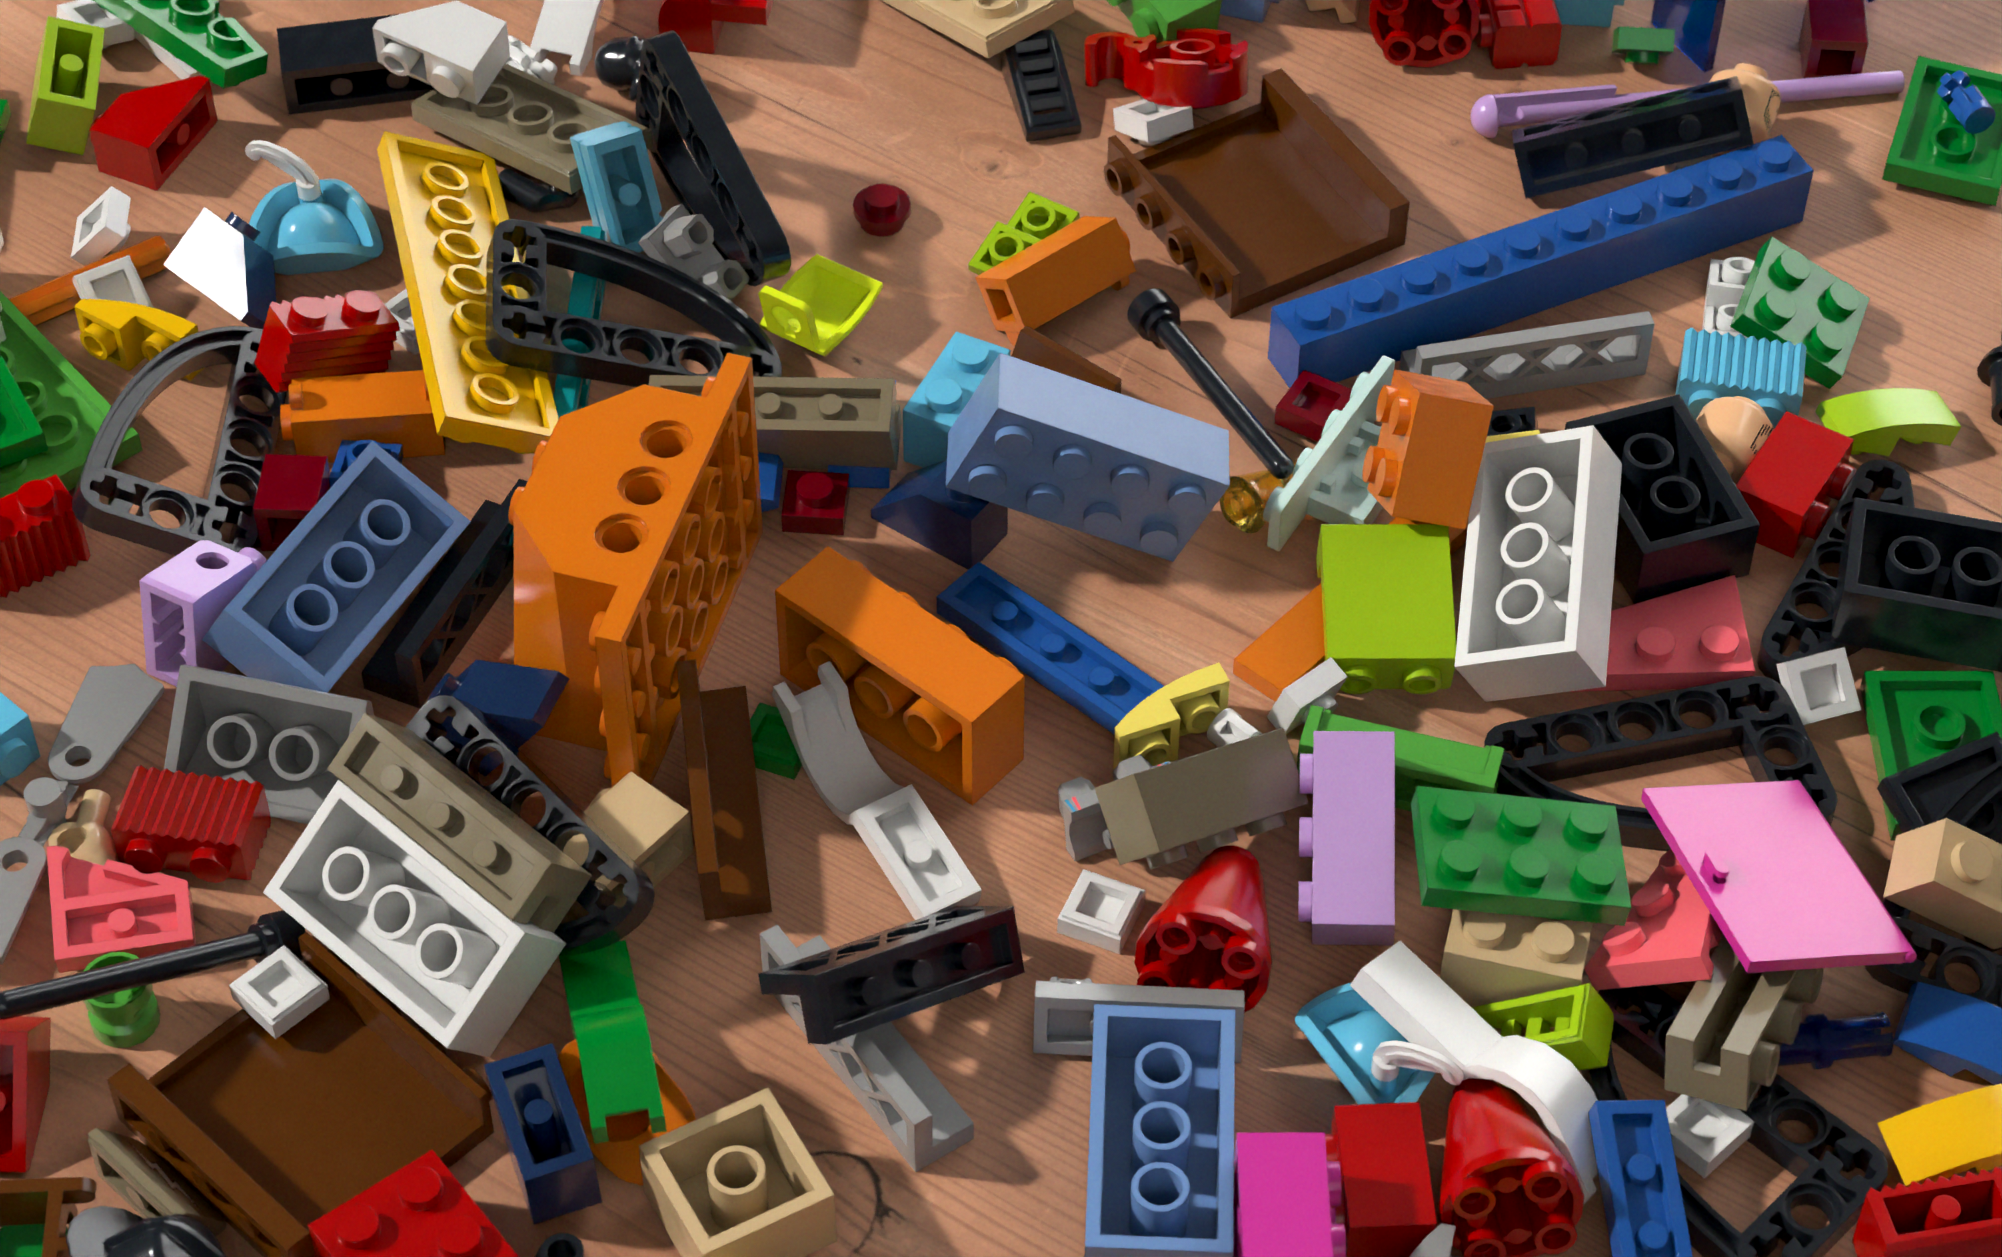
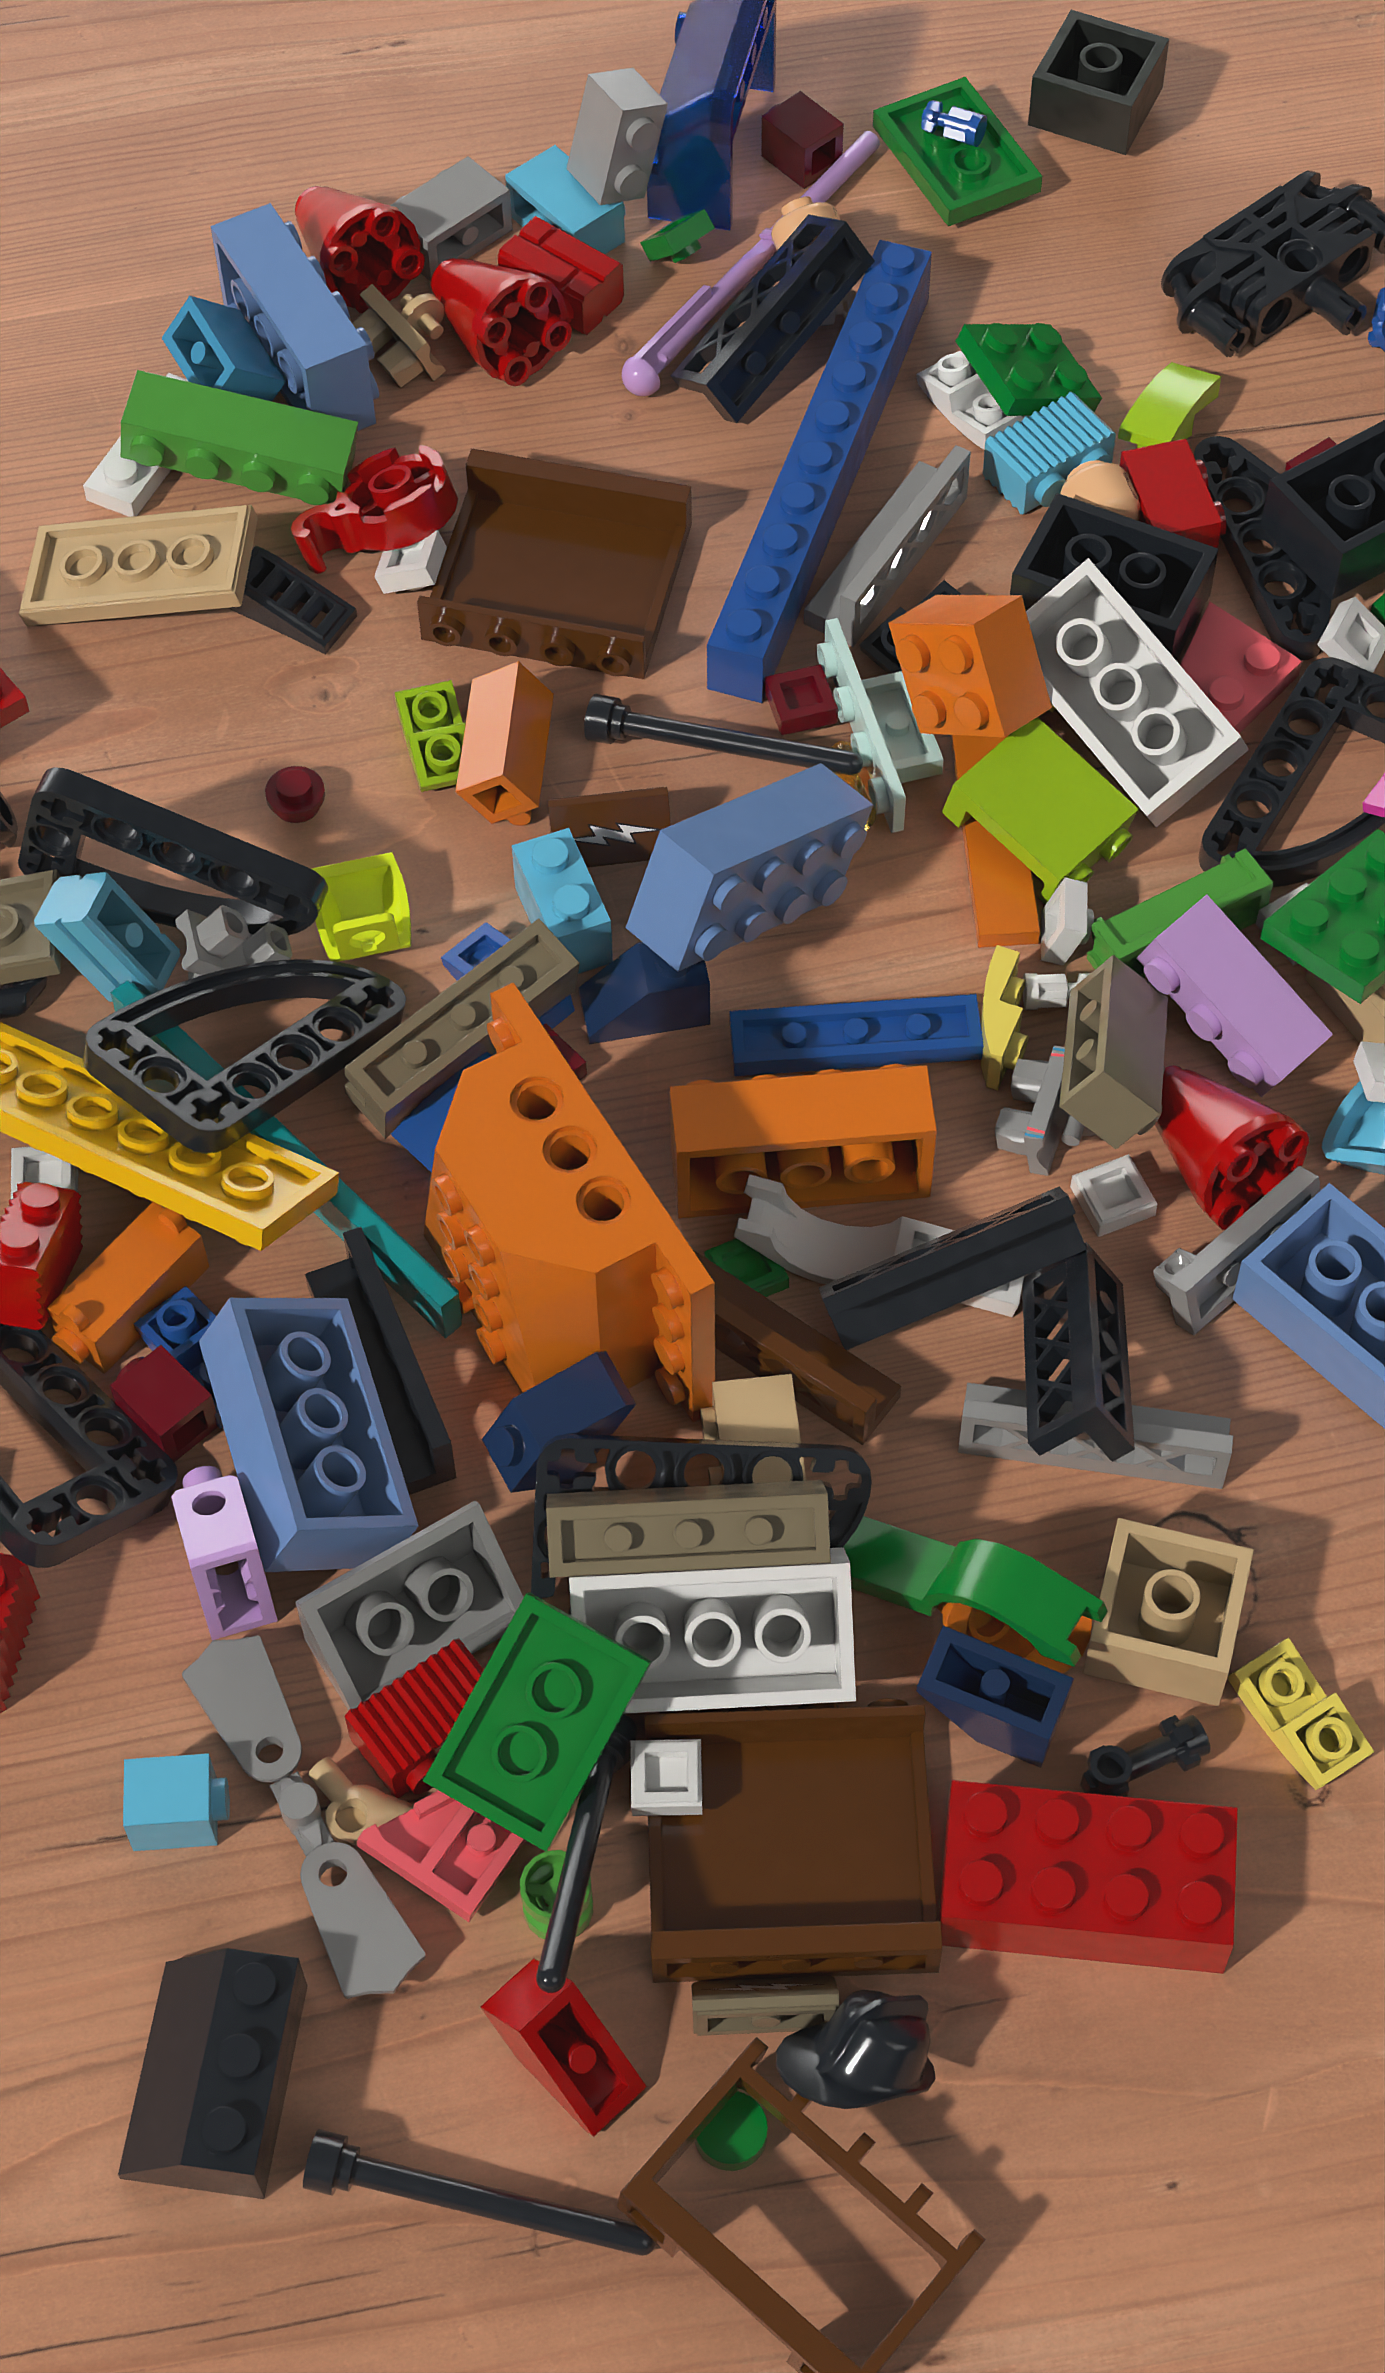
camera: 45 degrees left, 10 degrees up
(222, 861) = (537, 1721): none -> green plate
(891, 839) = (953, 1268): none -> black fence

